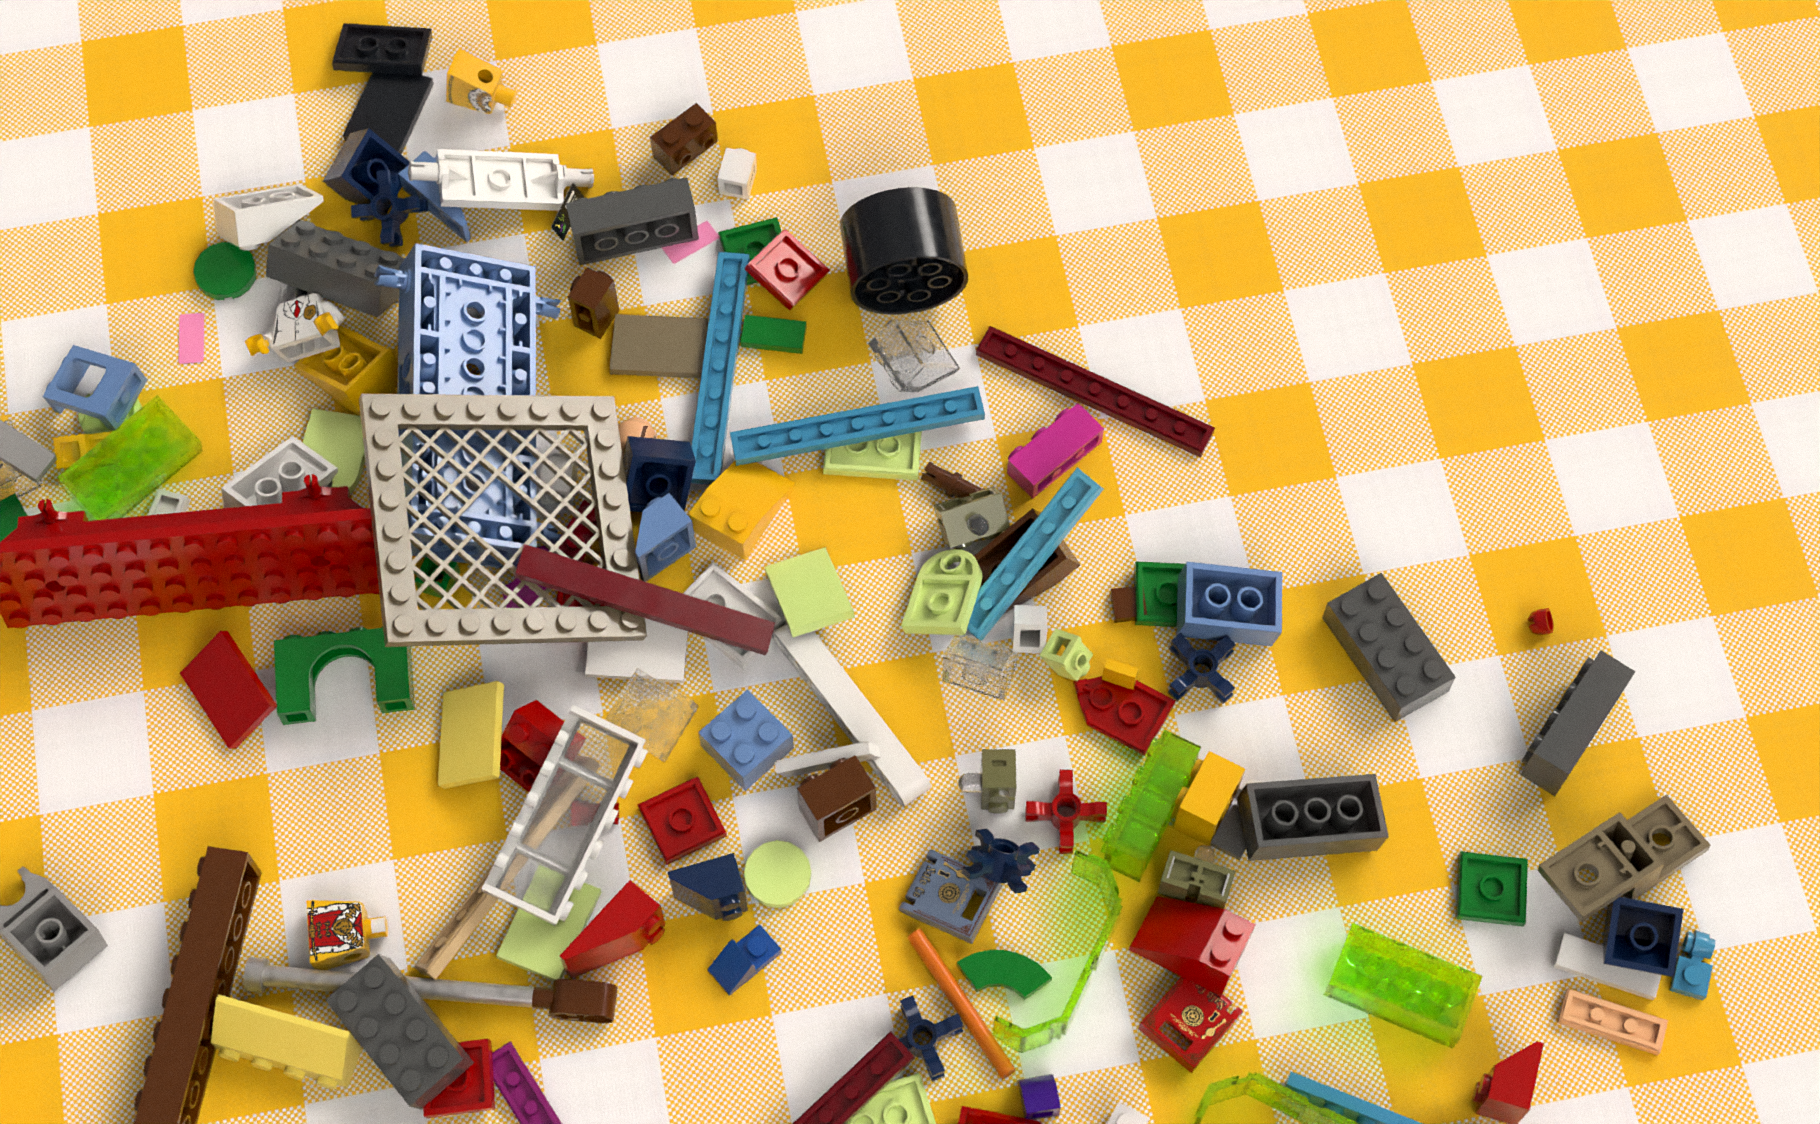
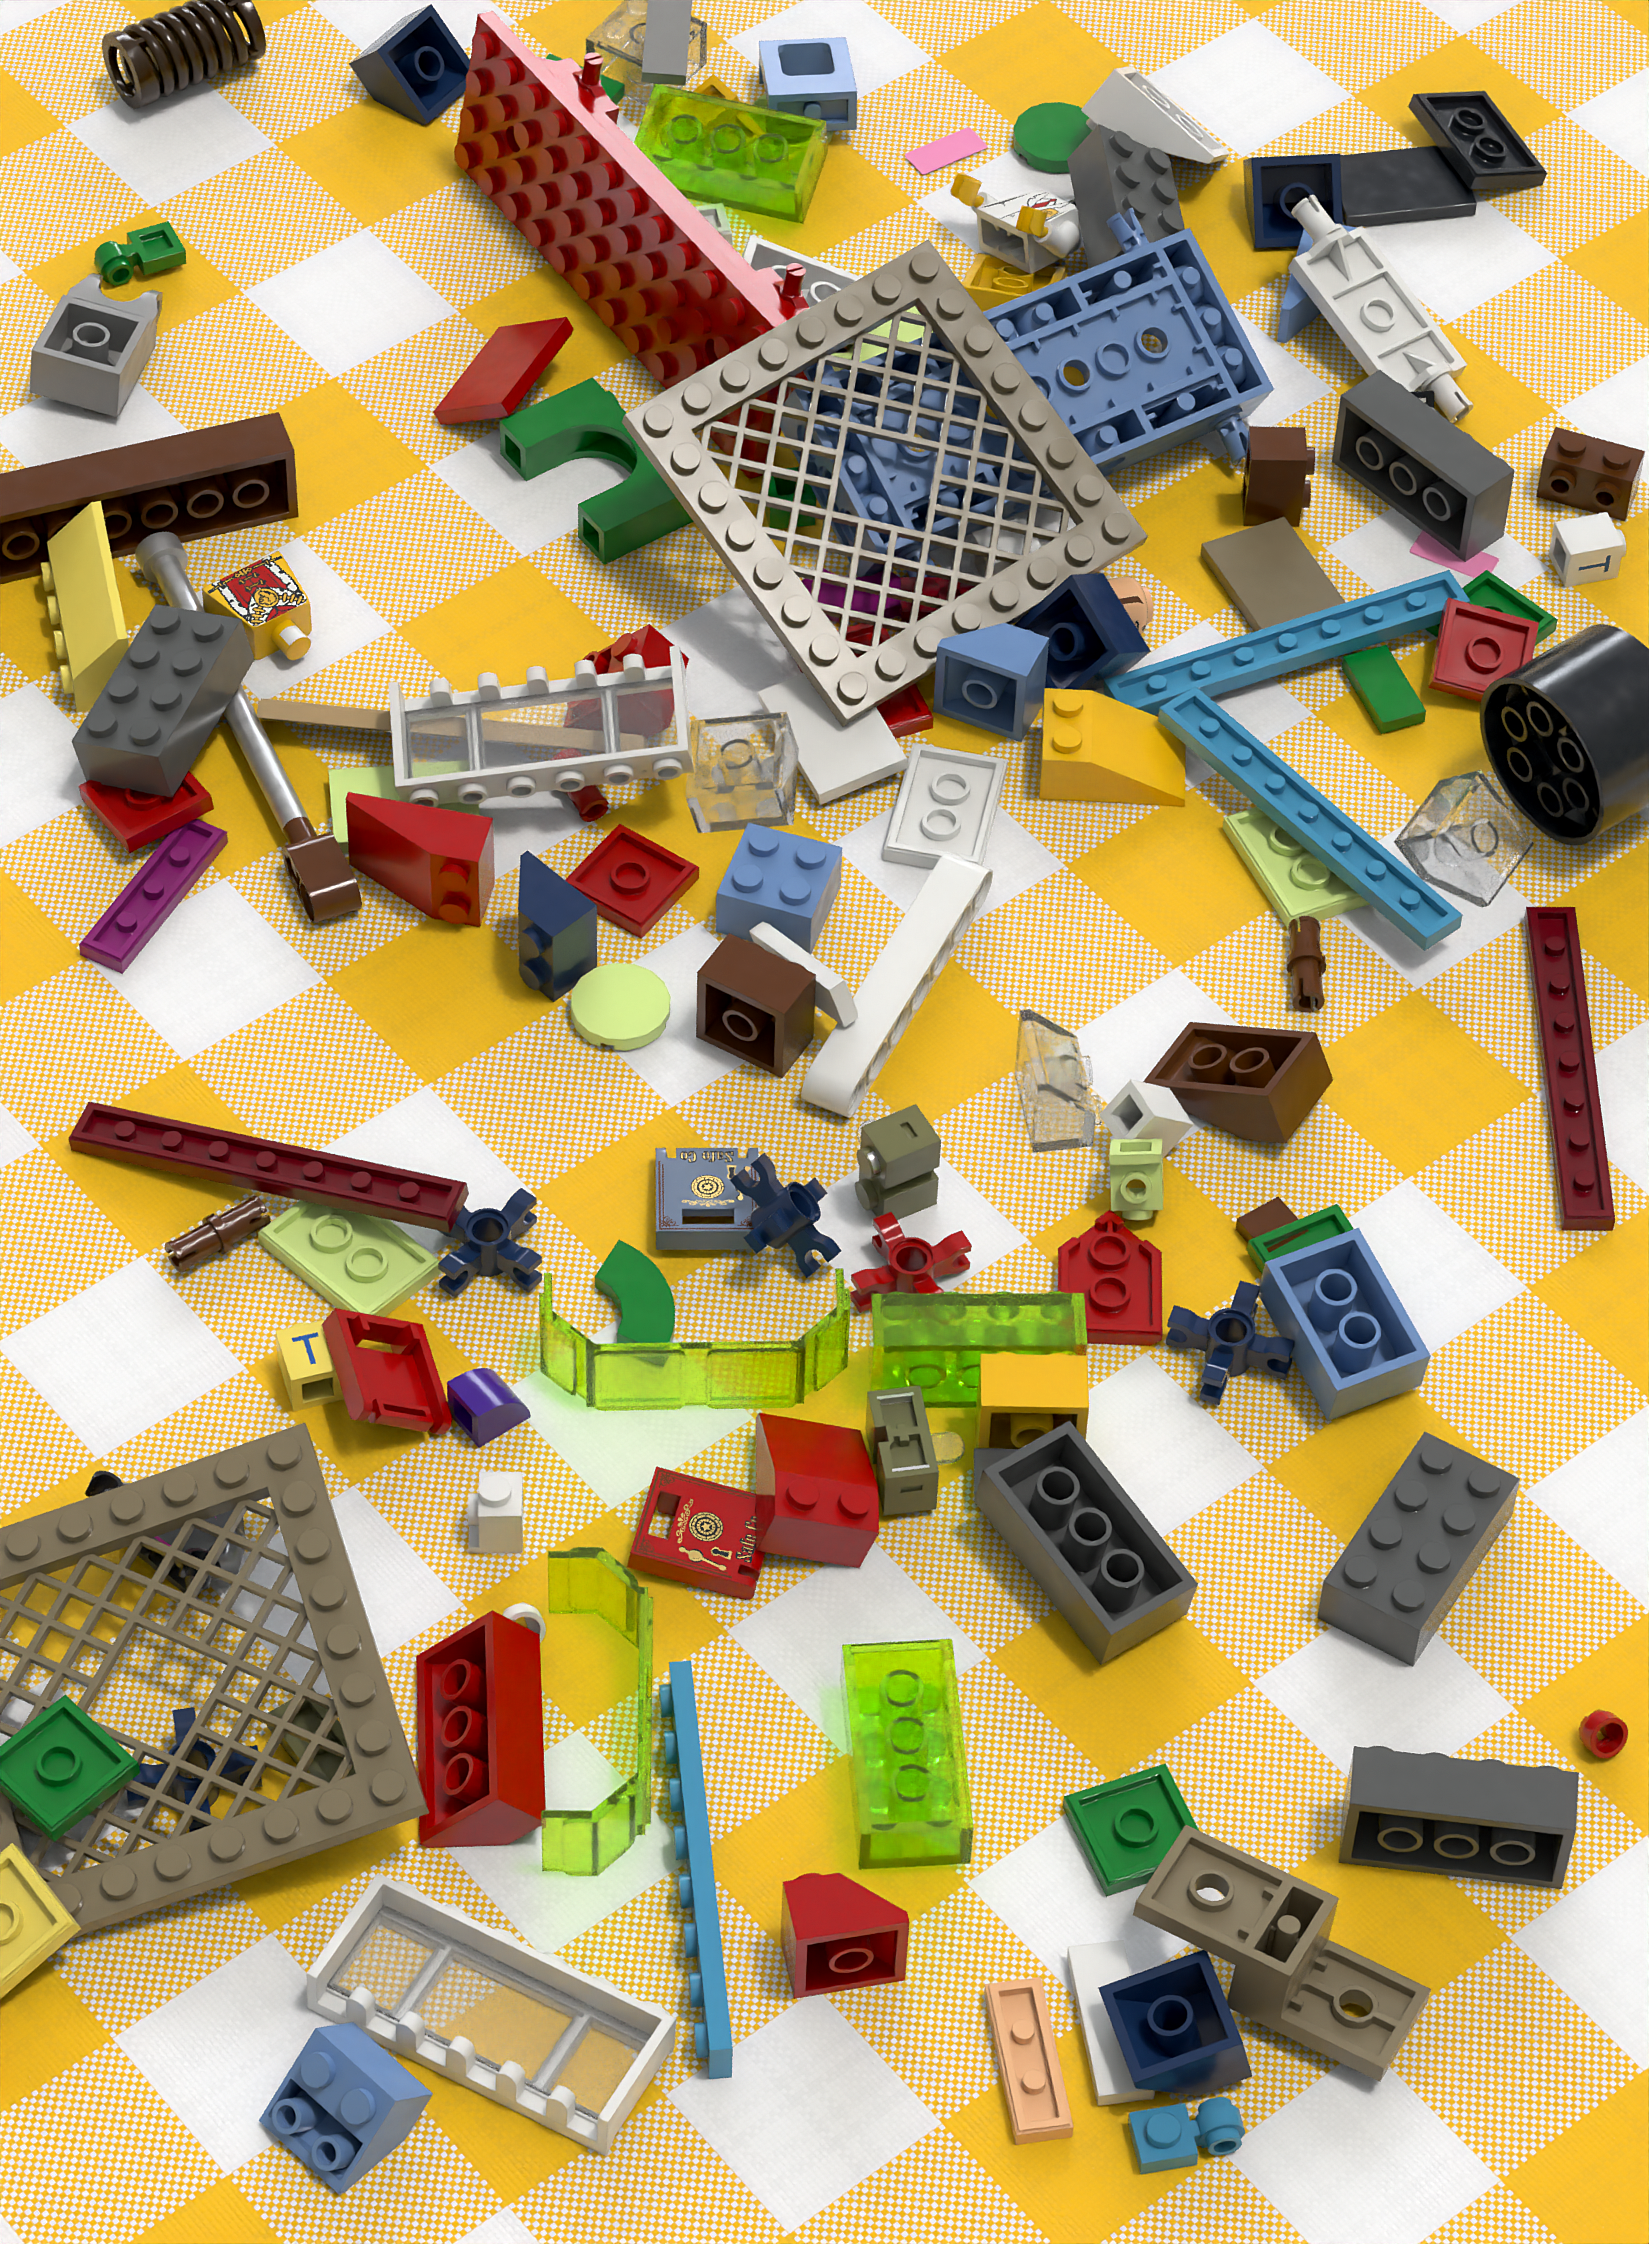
camera: 60 degrees right, 15 degrees down
(379, 205) = (1253, 235): dark blue pin -> none
(471, 735) = (599, 618): light yellow tile -> none
(476, 84) = (1499, 253): yellow torso -> none
(644, 599) = (887, 686): dark red tile -> none
(743, 959) = (477, 1019): blue slope -> none
(809, 592) = (1029, 864): yellowish green tile -> none
(943, 596) = (1131, 1008): yellowish green tile -> none
(961, 1004) = (567, 1270): orange piece -> none
(972, 518) = (1263, 989): piece -> none
(1032, 551) = (1250, 1058): medium azure tile -> none
(1054, 450) = (1438, 1049): dark pink brick -> none
(1120, 673) = (1150, 1241): yellow tile -> none

